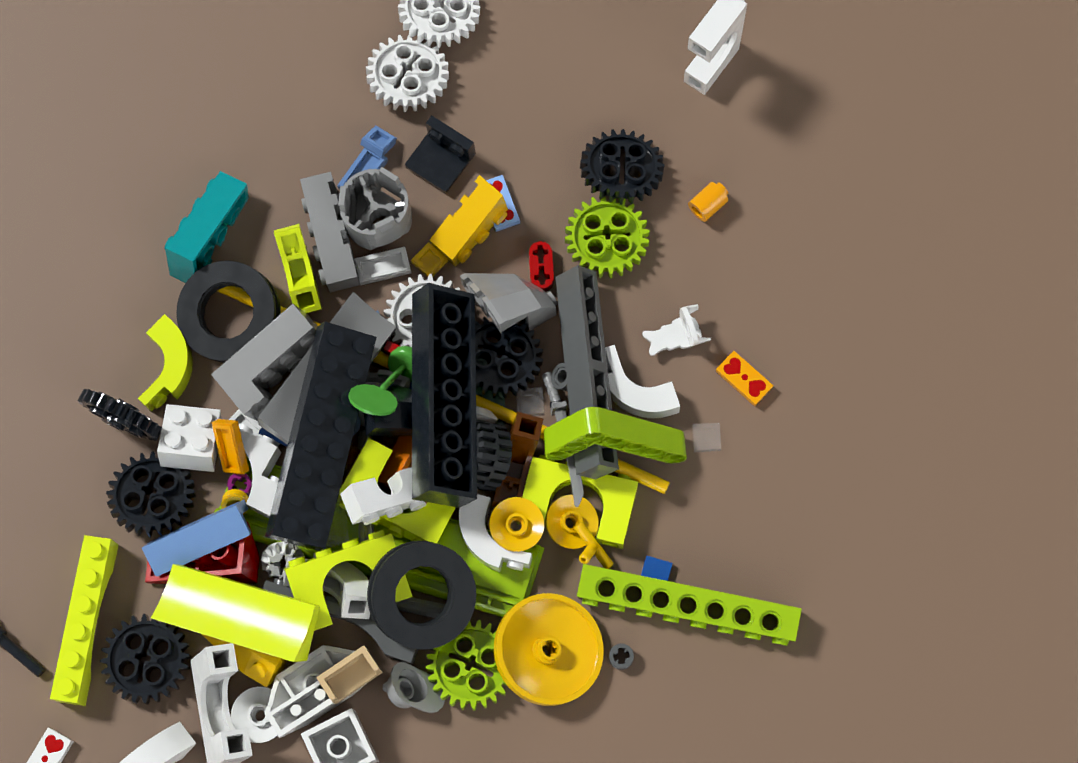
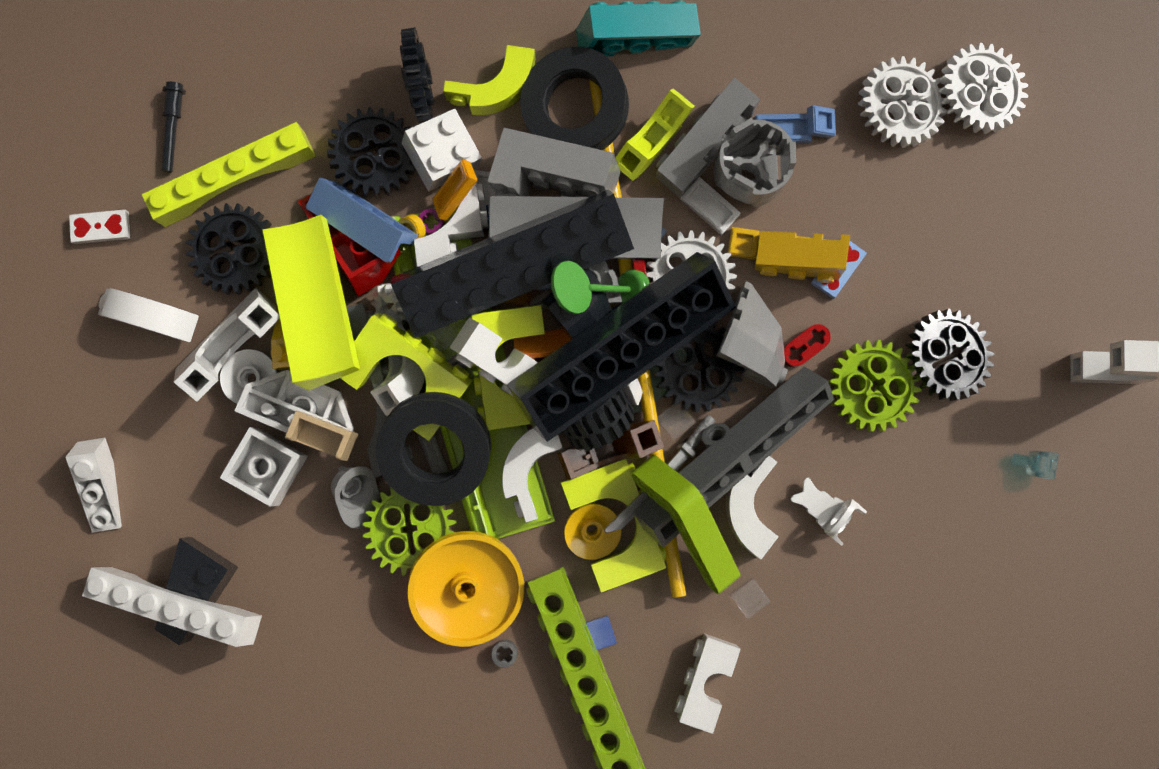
camera: 50 degrees right, 10 degrees up
(441, 155) = (847, 186): black bracket -> none
(521, 511) = (557, 503): yellow dish -> none
(593, 547) = (580, 566): yellow piece -> none
(708, 201) = (971, 455): light orange brick -> none
(744, 378) = (827, 596): light orange tile -> none
(748, 157) = (1038, 463): none -> clear light blue piece
(762, 531) = (712, 657): none -> white arch

